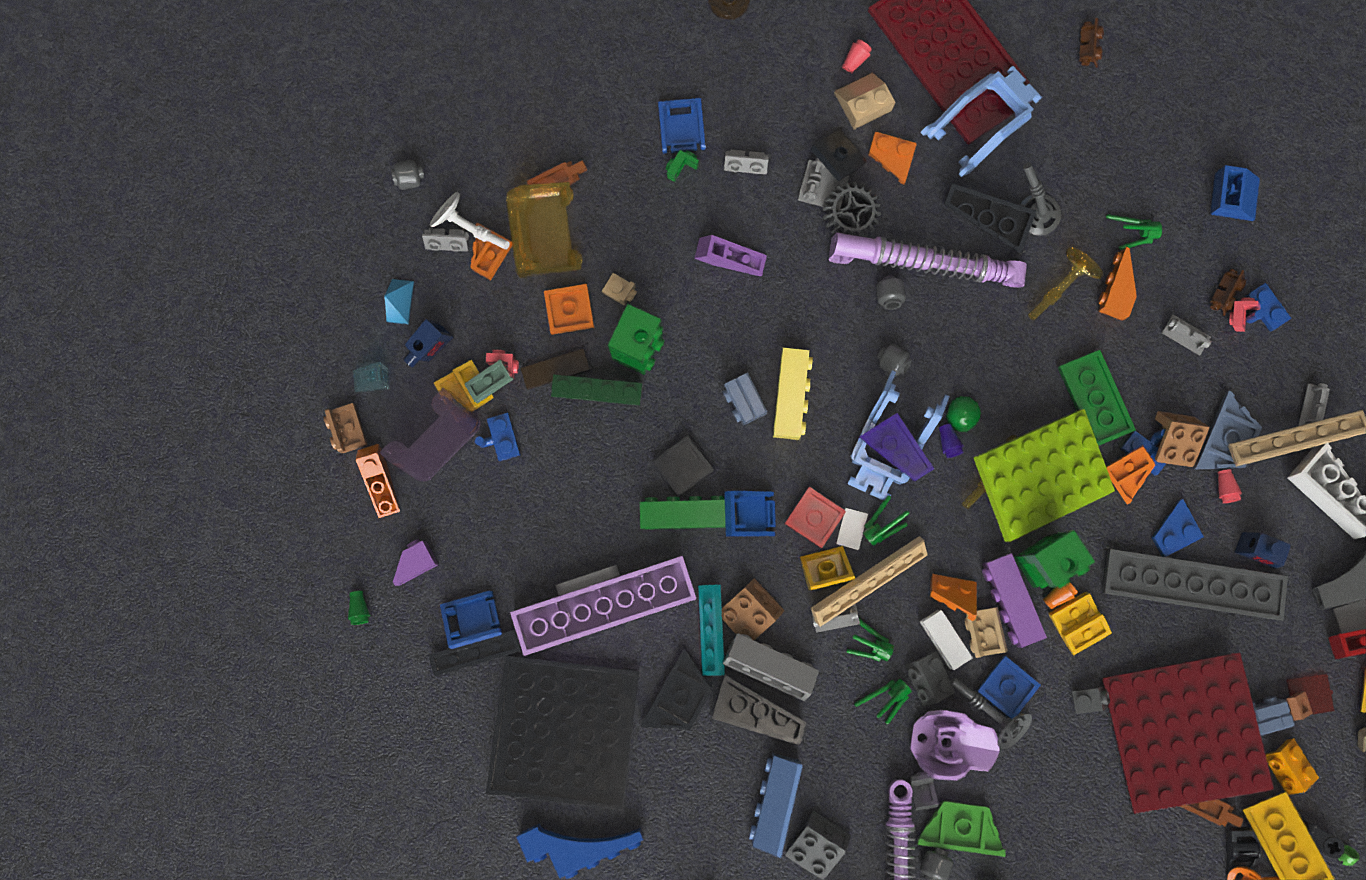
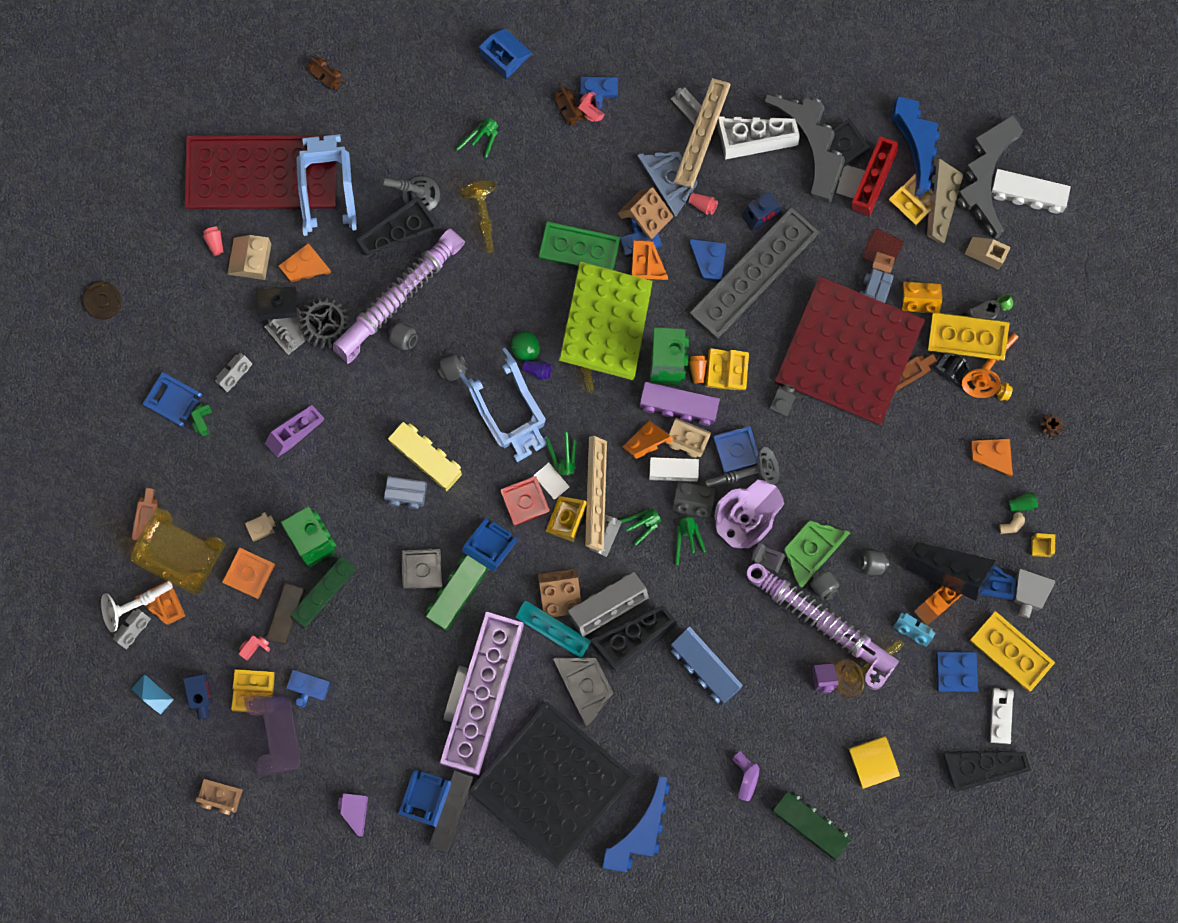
camera: 60 degrees left, 5 degrees down
(358, 609) = (359, 877): green cone -> none
(371, 378) = (194, 754): clear light blue slope -> none
(377, 480) = (275, 799): orange slope -> none
(407, 174) = (61, 623): dark grey head -> none
(488, 381) = (261, 666): sand green plate -> none
(819, 845) = (756, 658): dark grey bracket -> none
(899, 447) = (516, 407): dark purple wing -> none
(1120, 290) = (518, 180): orange slope -> none
(1186, 335) = (579, 155): light grey hinge -> none

